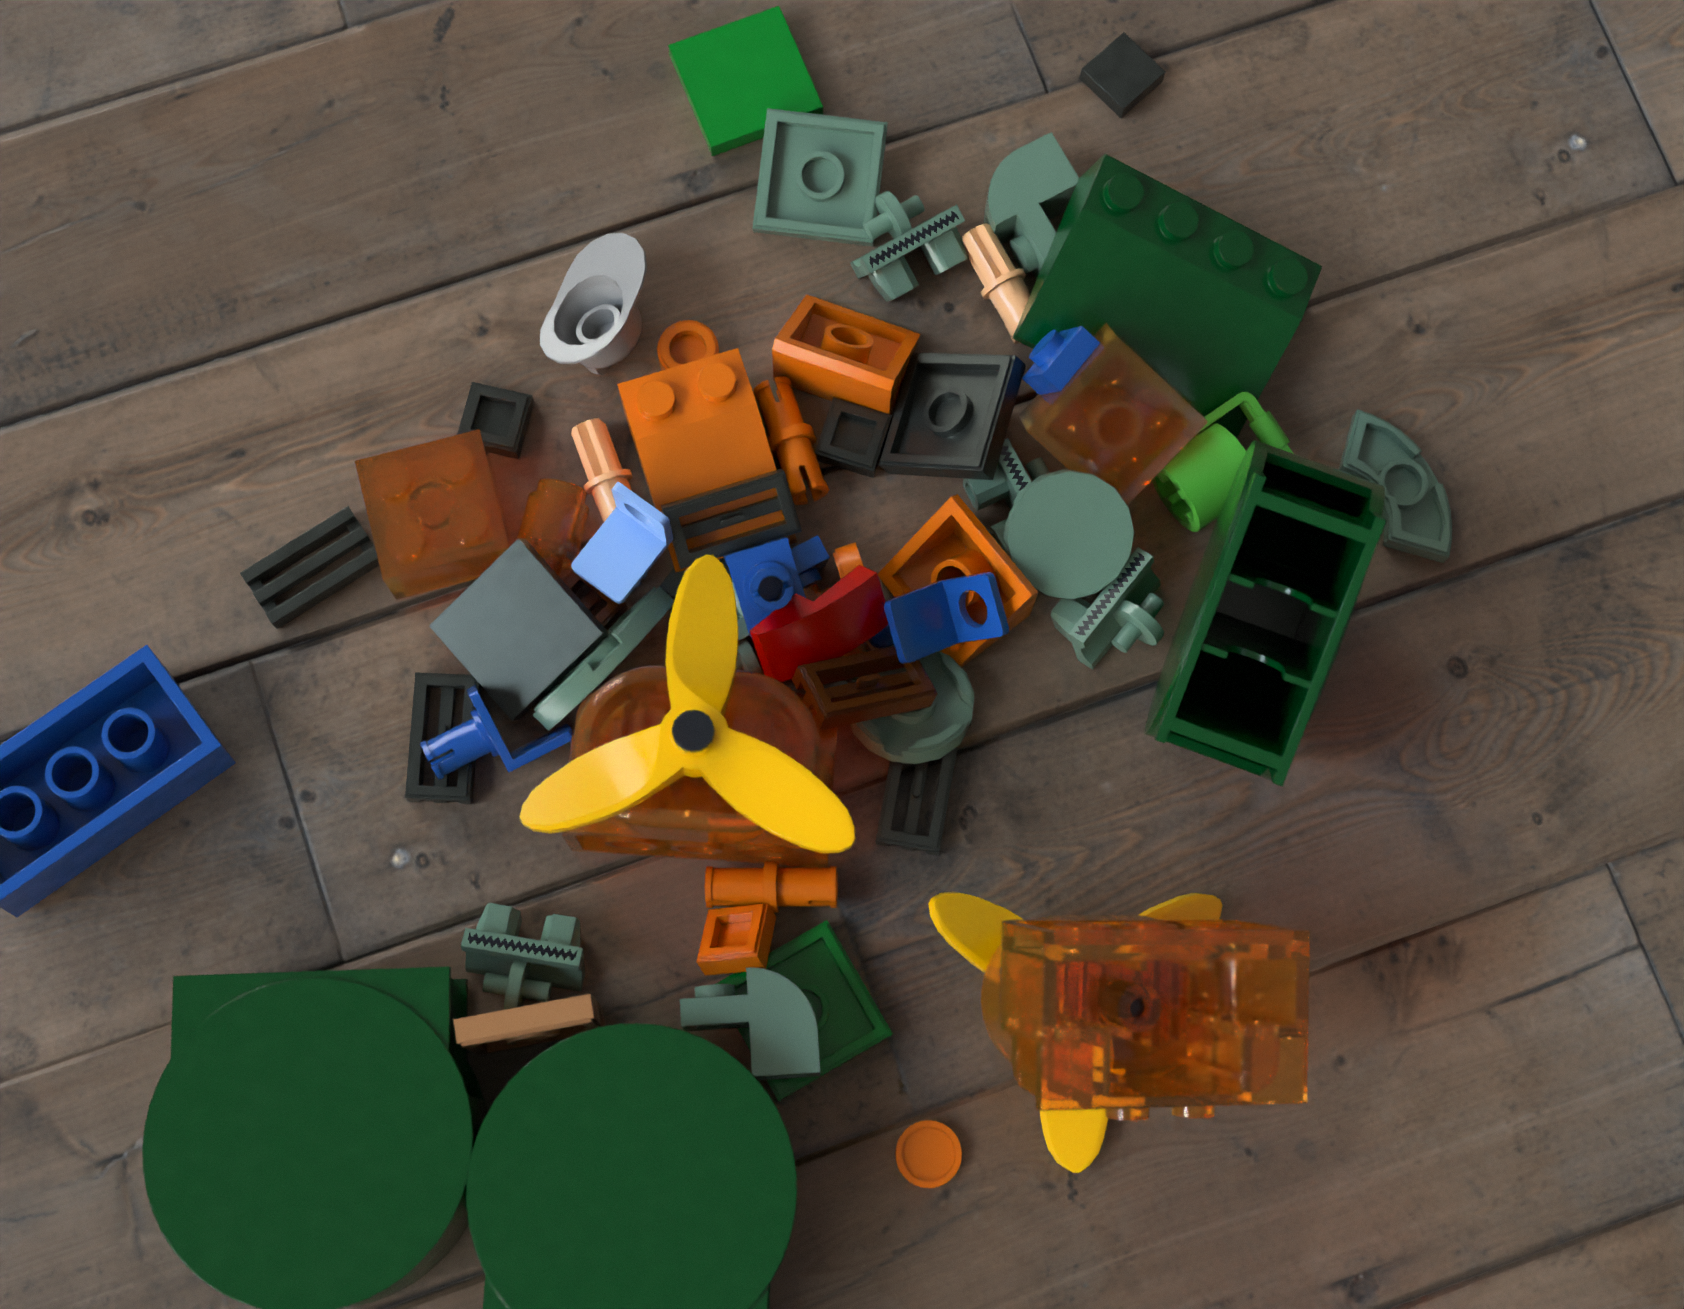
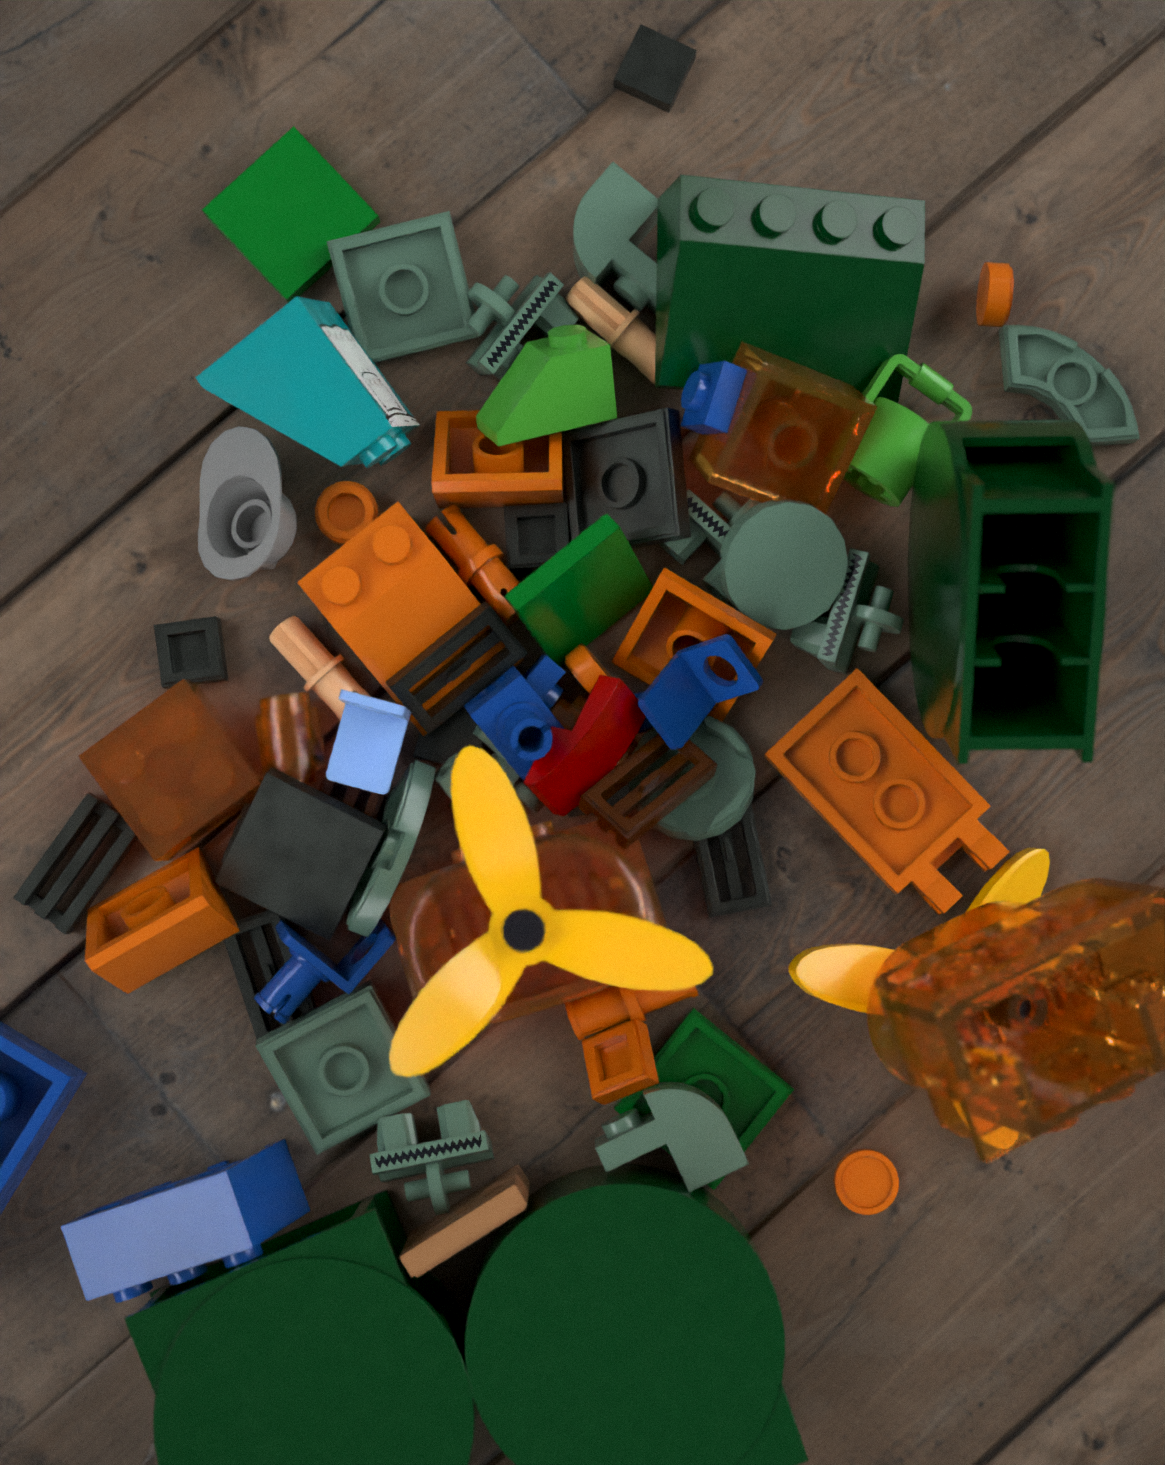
camera: 20 degrees left, 10 degrees up
(267, 925) = (186, 1225): none -> wedge
(361, 648) = (157, 923): none -> orange slope
(473, 846) = (339, 1068): none -> sand green tile
(707, 218) = (314, 385): none -> teal slope
(872, 489) = (581, 590): none -> green tile
(919, 304) = (552, 388): none -> bright green slope
(1088, 788) = (886, 790): none -> orange tile
(1359, 378) = (994, 294): none -> orange tile

